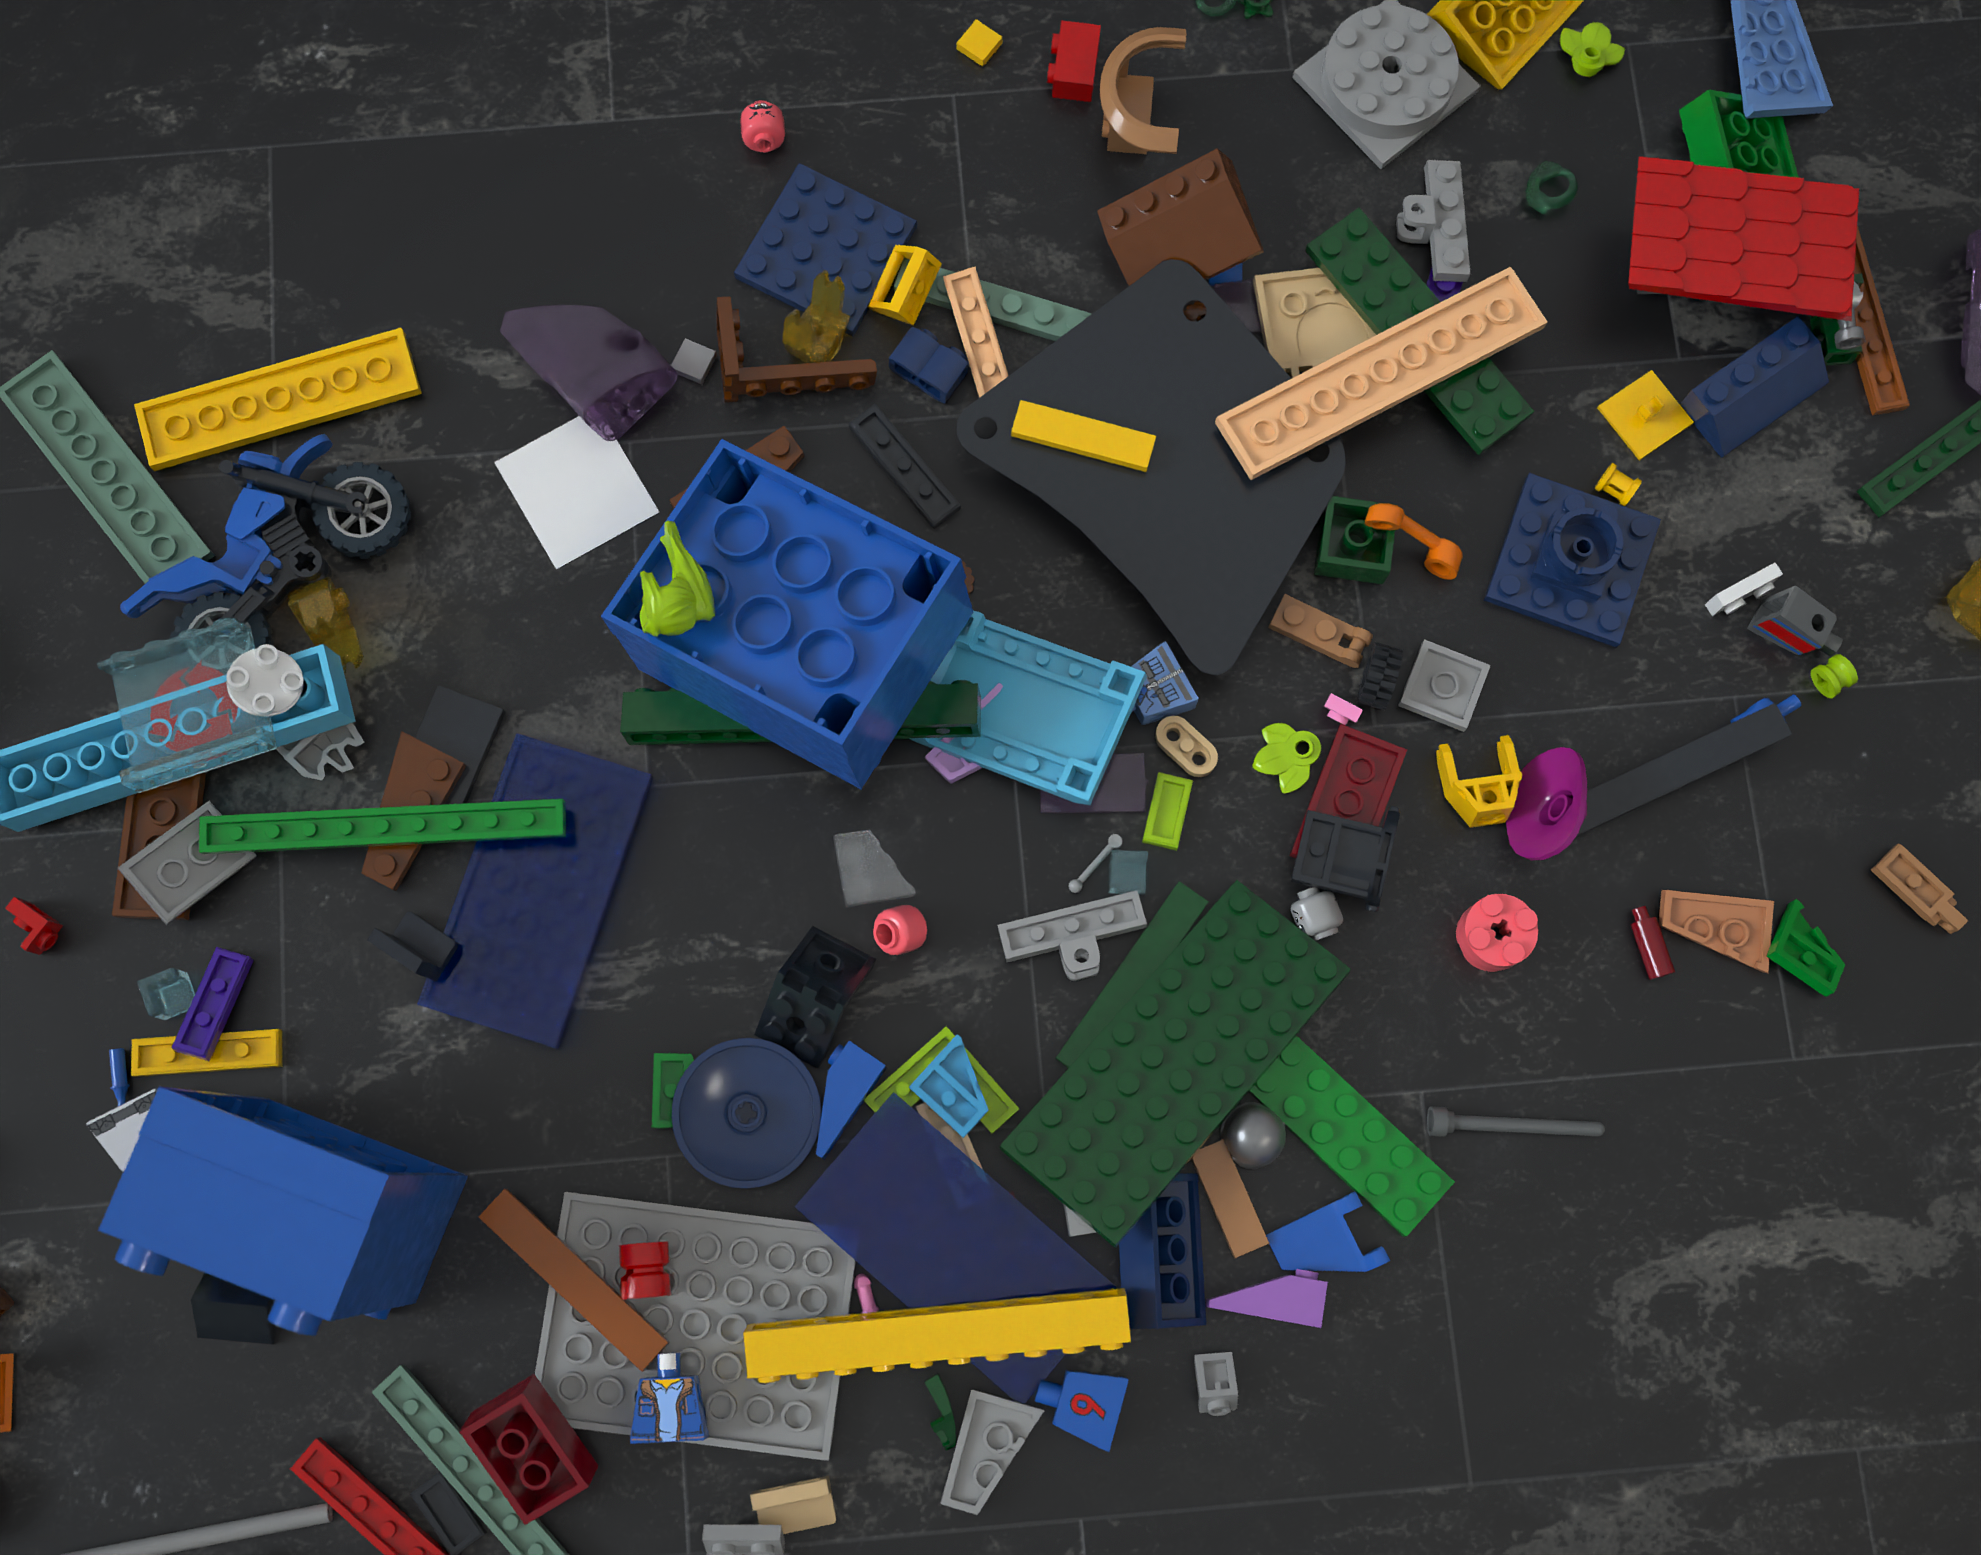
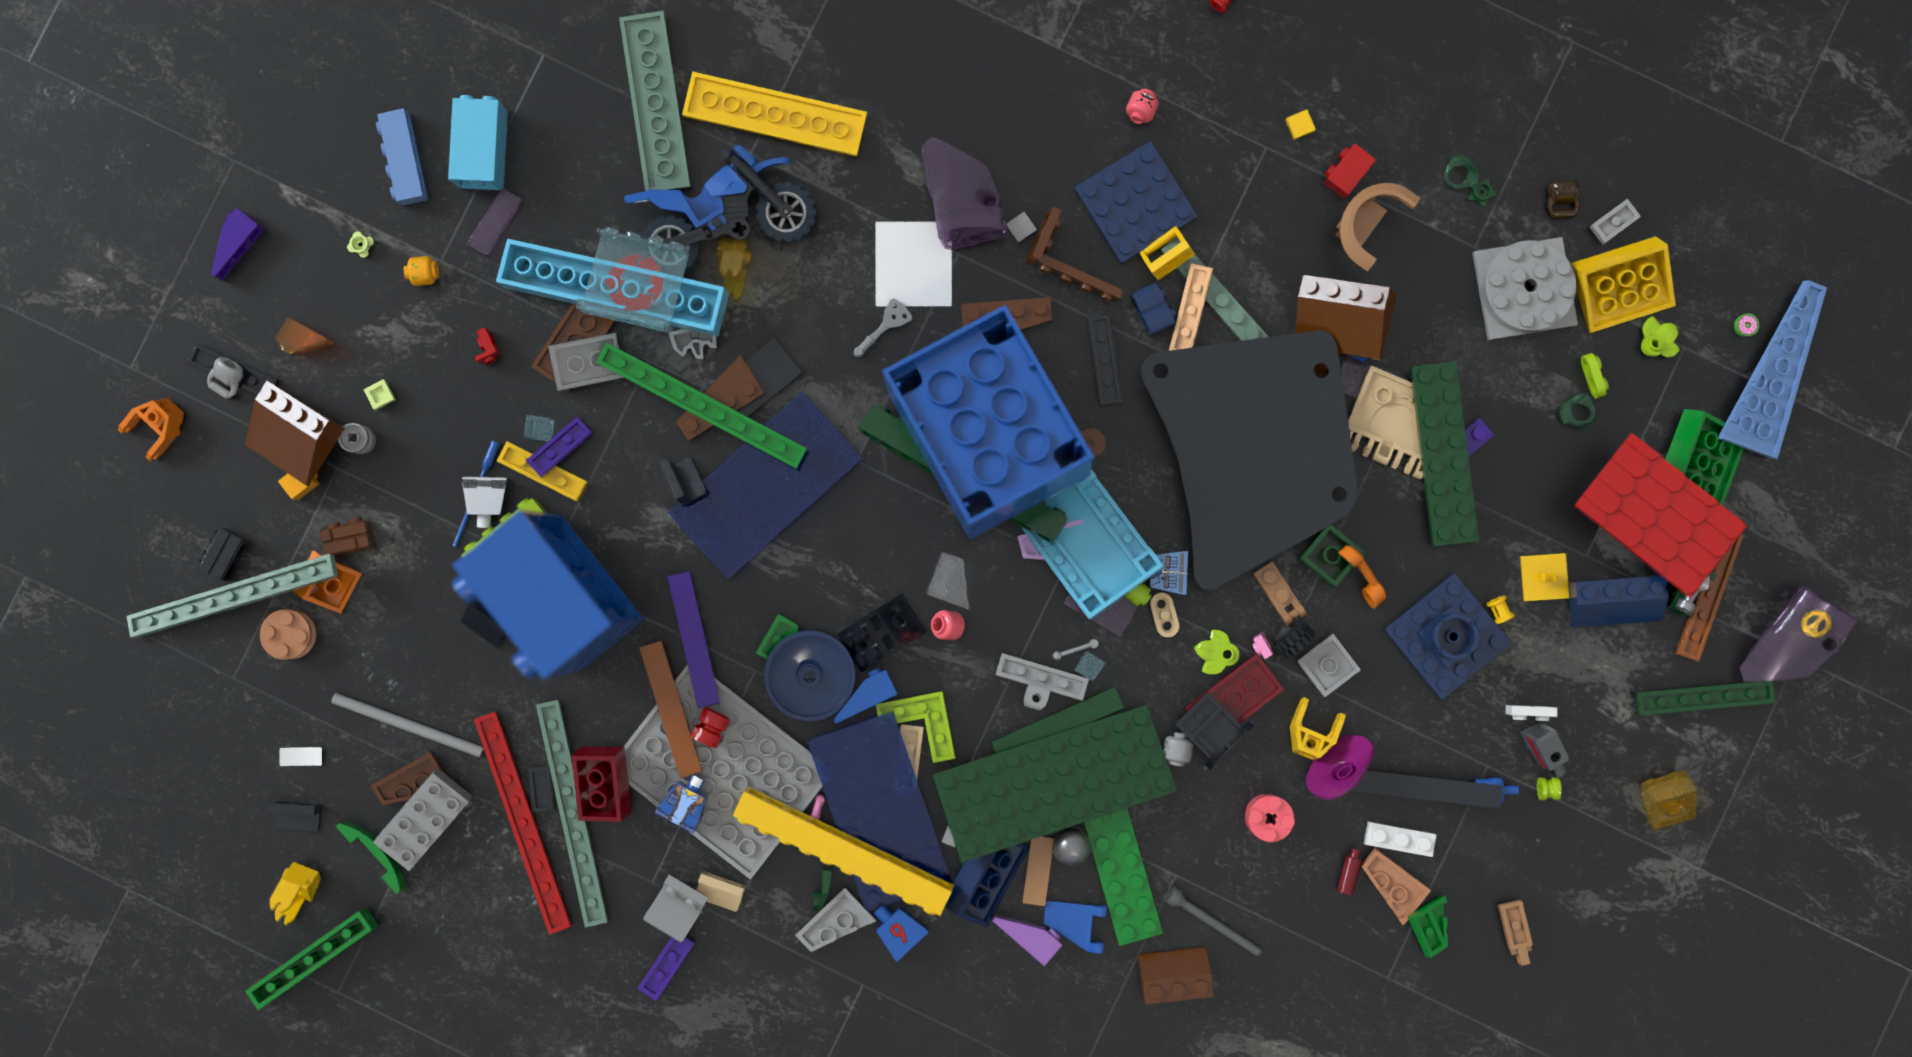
camera: 30 degrees right, 10 degrees up
(265, 681) = (681, 292): white dish -> none
(553, 1162) = (693, 640): none -> dark purple tile
(584, 580) = (887, 323): none -> light grey piece
(684, 600) = (935, 391): lime hair -> none
(822, 326) = (1105, 251): clear yellow piece -> none
(952, 1088) = (925, 727): dark azure wing -> none
(1083, 435) = (1212, 409): yellow tile -> none
(1135, 738) = (1139, 595): none -> lime brick
(1167, 811) = (1132, 644): lime tile -> none
(1216, 1383) = (973, 960): light grey bracket -> none
(1380, 373) = (1403, 470): light nougat plate -> none
(1440, 220) = (1500, 394): light grey plate -> none
(1509, 1231) = (1175, 975): none -> reddish brown slope
(1541, 133) = (1591, 367): none -> lime plate
(1686, 859) = (1400, 839): none -> white plate

